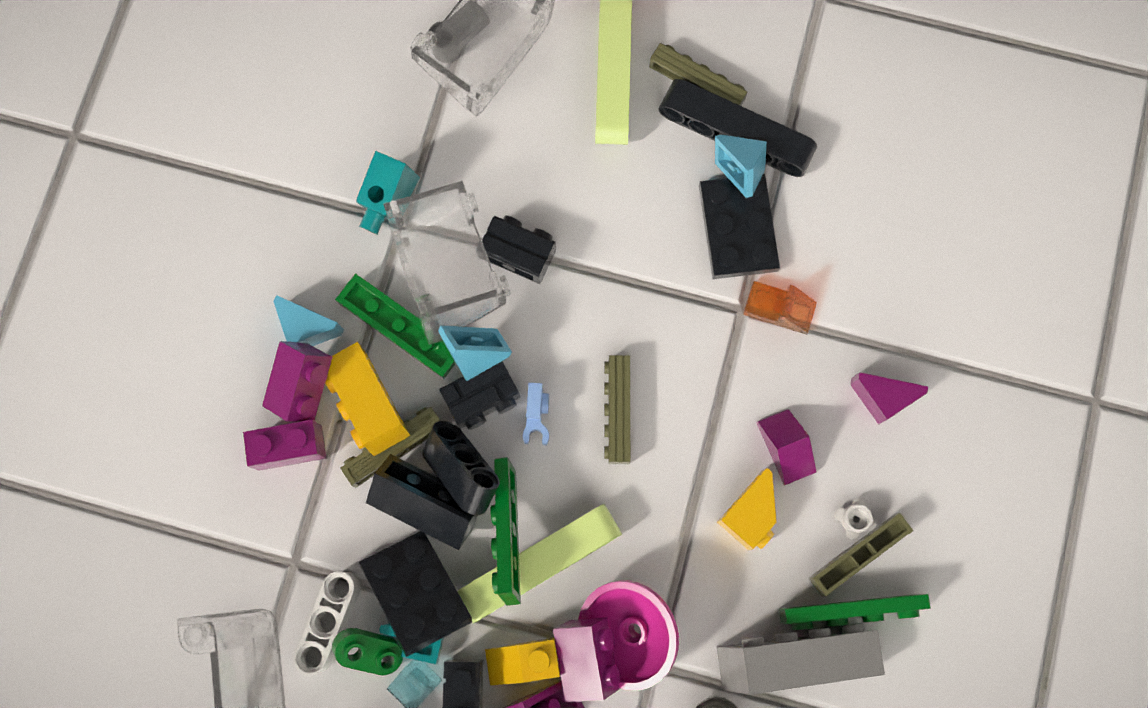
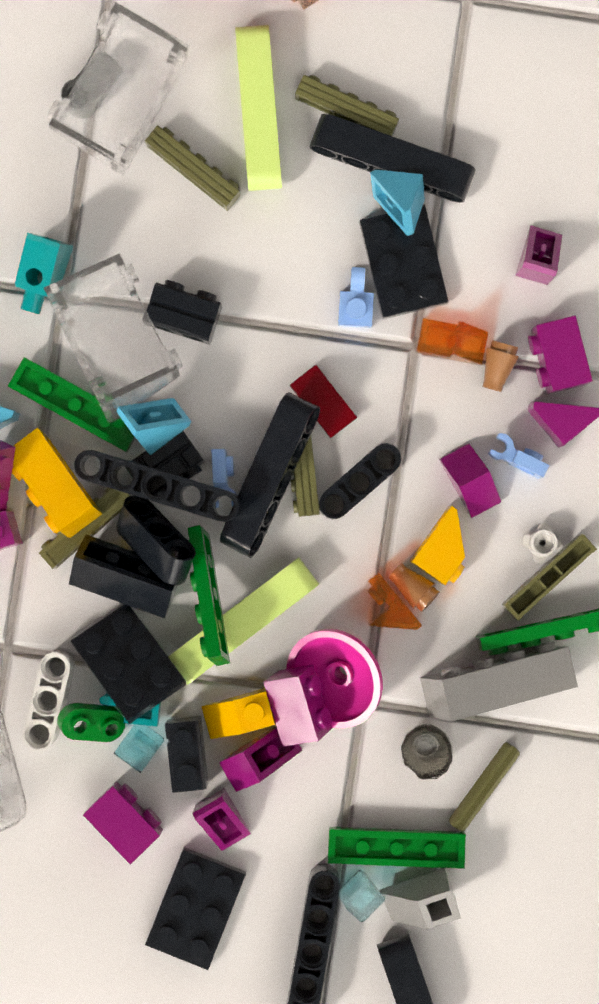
camera: 10 degrees left, 10 degrees up
(455, 401) = (141, 485): none -> black beam
(544, 116) = (193, 167): none -> olive piece
(584, 416) = (270, 473): none -> black beam
(645, 351) = (318, 390): none -> dark red tile
(686, 422) = (373, 472): none -> black beam
(687, 261) = (356, 305): none -> light blue plate
(700, 573) = (397, 613): none -> clear orange slope
(720, 549) = (414, 587): none -> medium nougat cone
(825, 334) = (499, 364): none -> medium nougat cone
(844, 432) = (526, 461): none -> light blue plate
(873, 235) = (540, 256): none -> magenta slope
(888, 331) = (560, 355): none -> magenta brick

